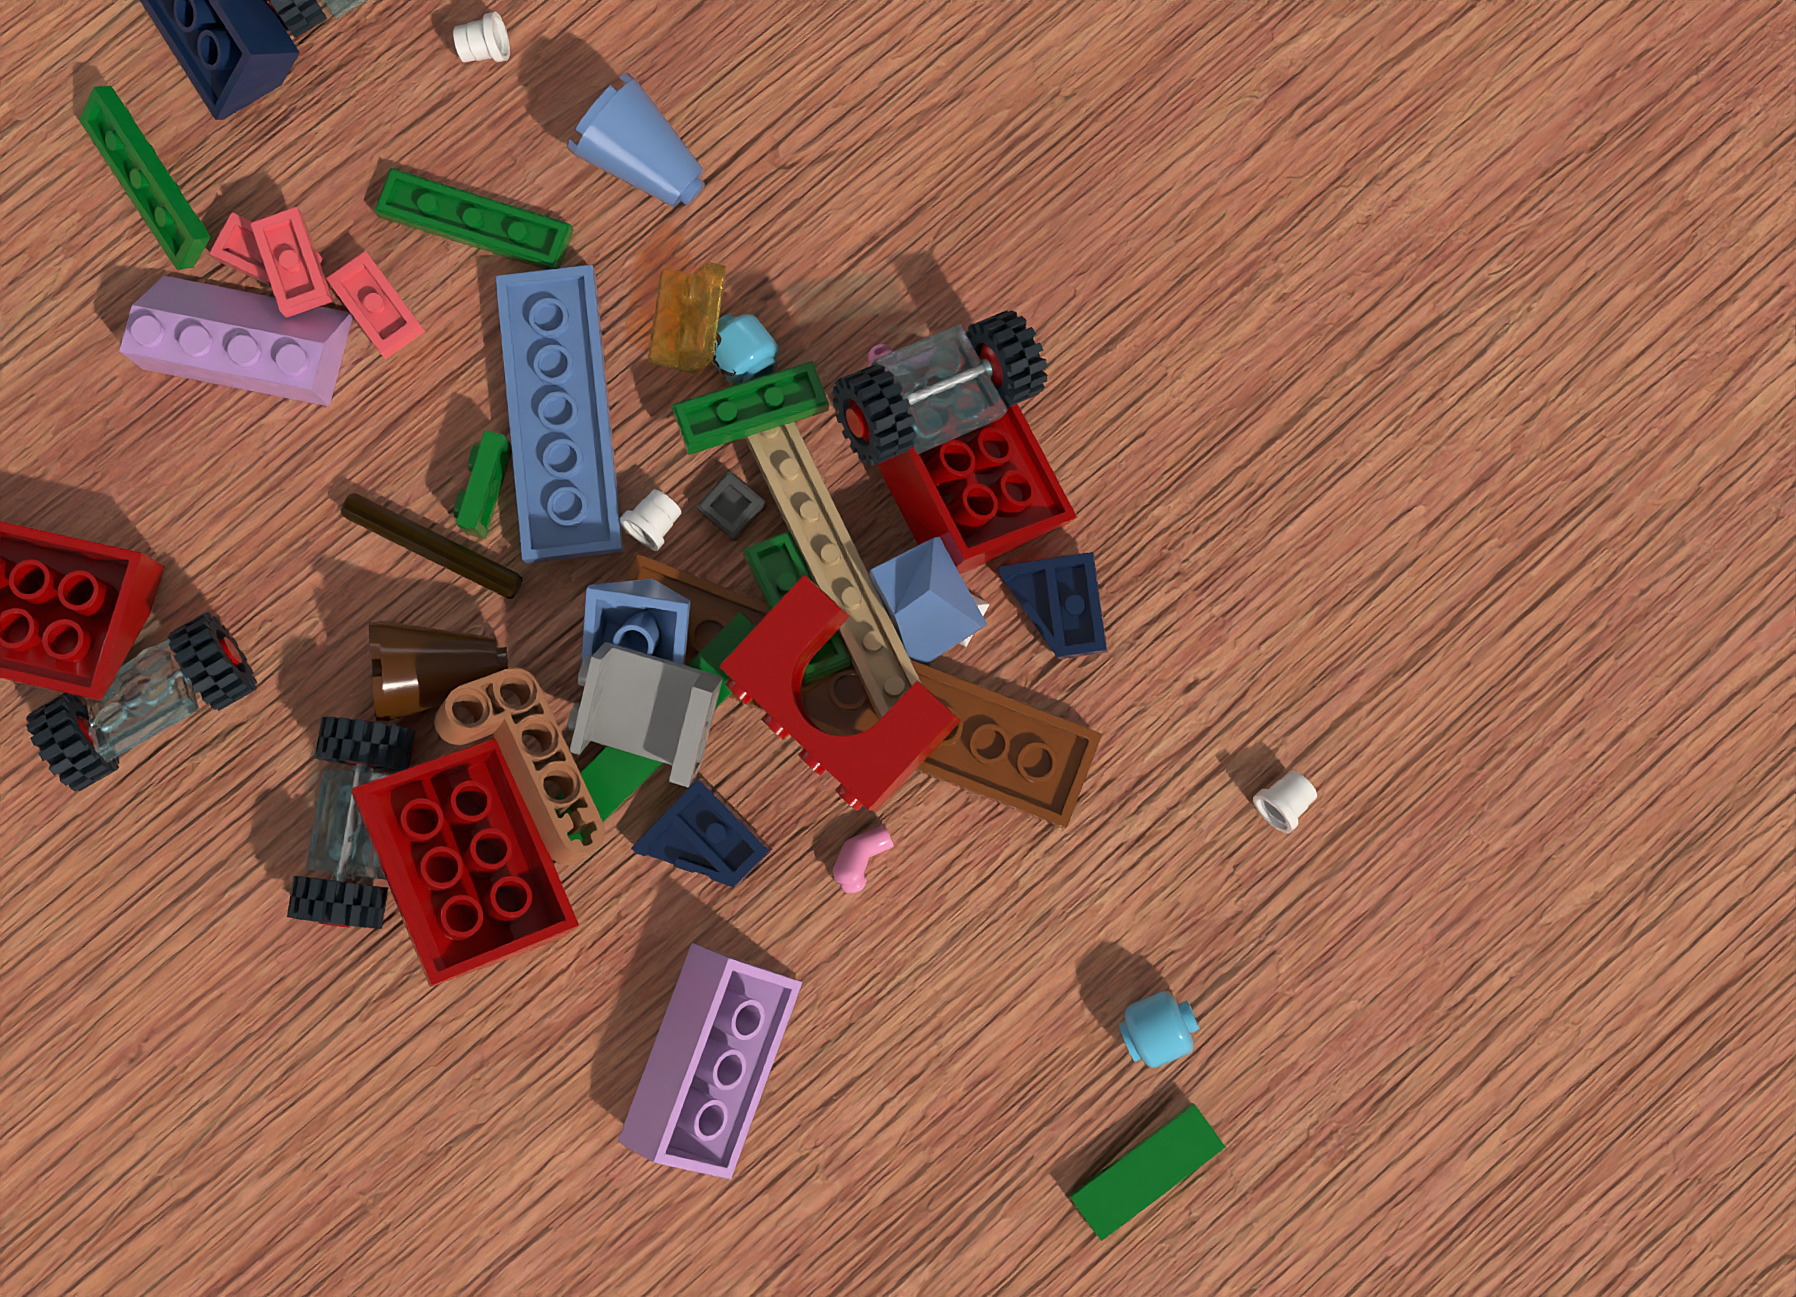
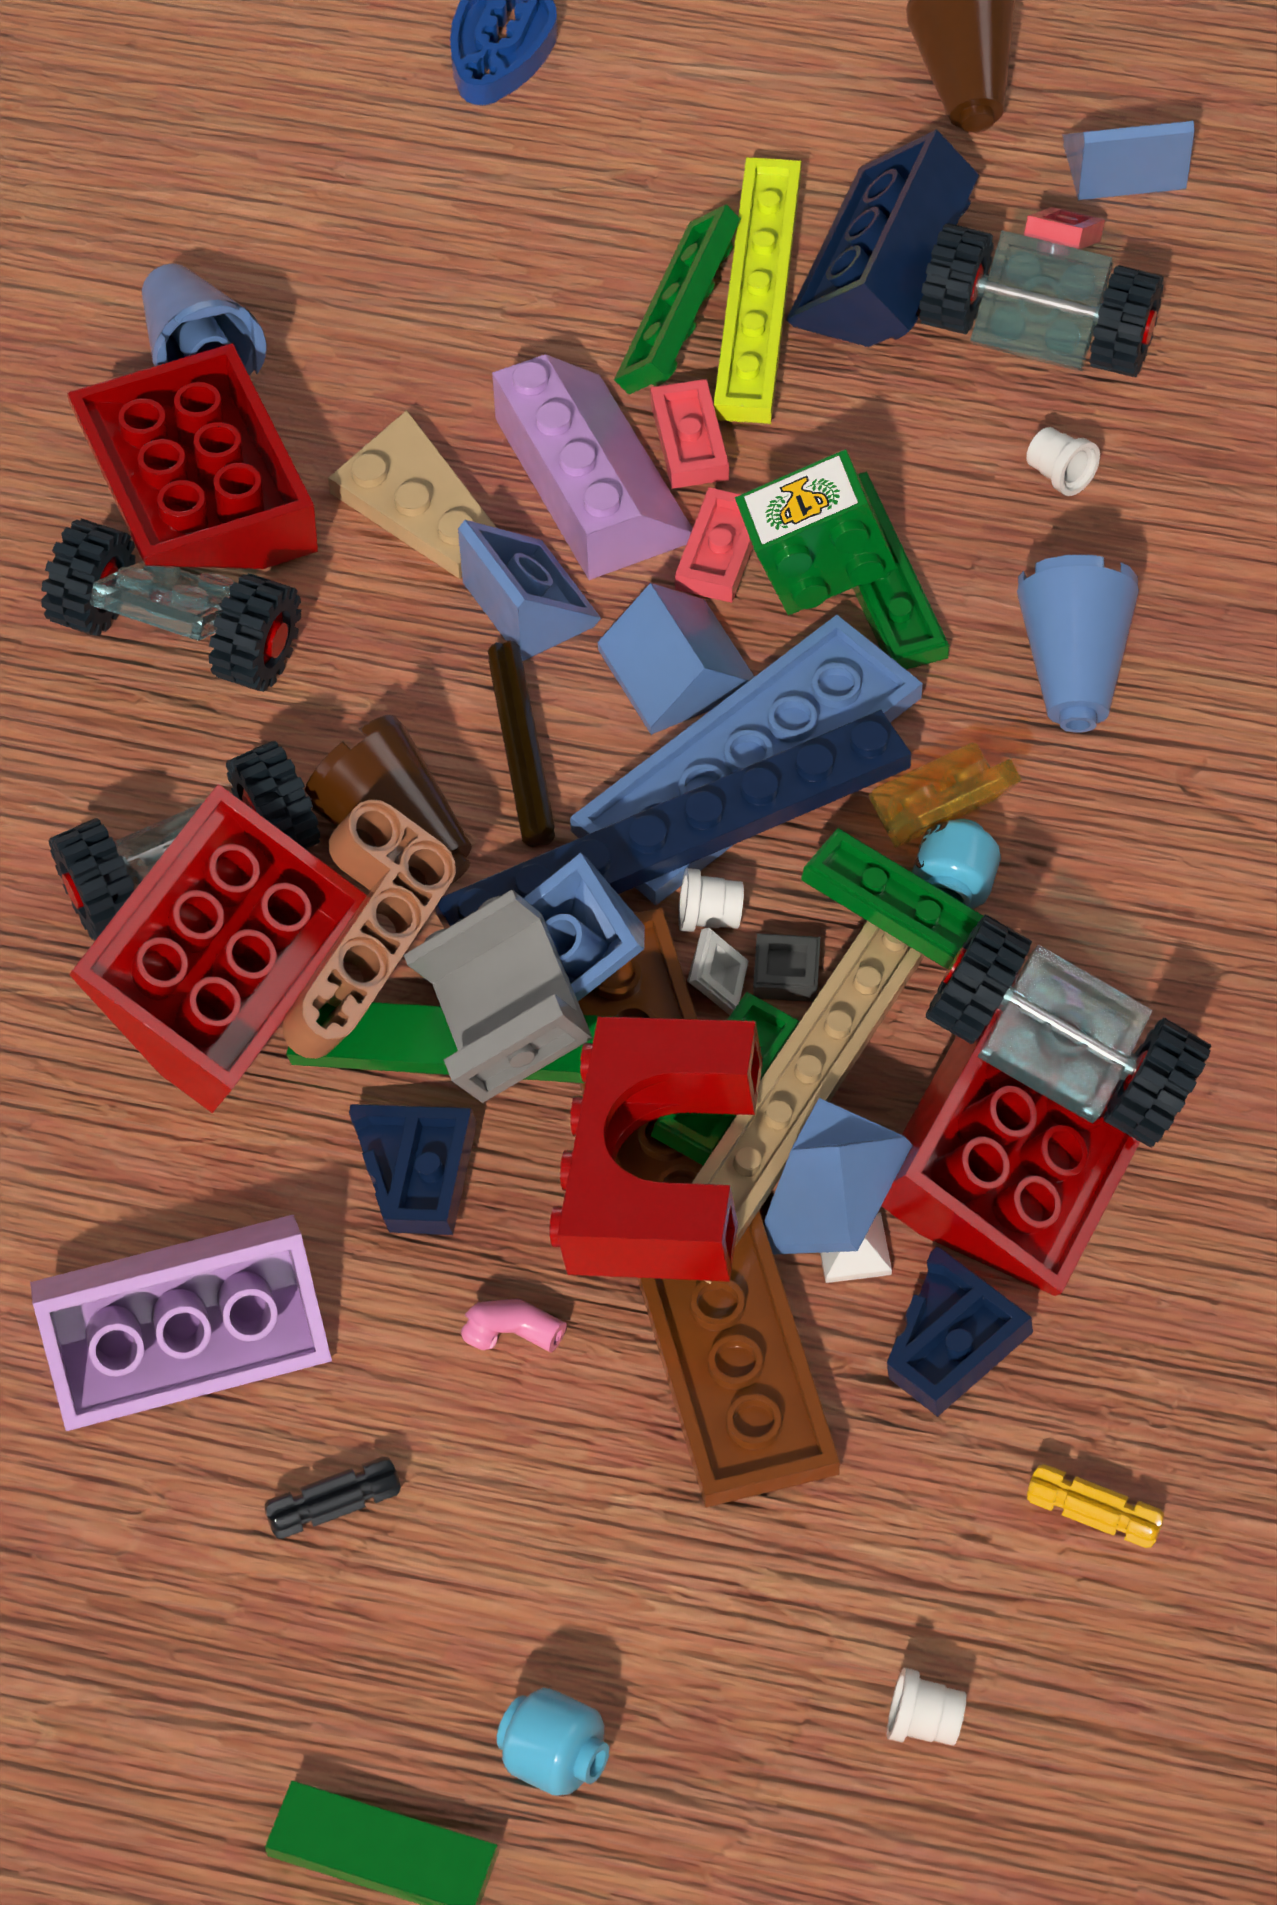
camera: 55 degrees right, 25 degrees down
(169, 470) = (409, 492): none -> tan wing
(176, 117) = (757, 291): none -> neon yellow plate
(291, 262) = (697, 445): coral plate -> none
(310, 455) = (522, 588): none -> medium blue slope
(432, 244) = (816, 532): none -> green brick
(442, 399) = (672, 657): none -> medium blue slope
(488, 467) = (616, 740): green plate -> none
(590, 498) = (711, 814): none -> dark blue plate
(706, 552) = (718, 970): none -> white slope
(899, 1047) = (332, 1497): none -> black axle
(1226, 606) = (1095, 1506): none -> yellow axle

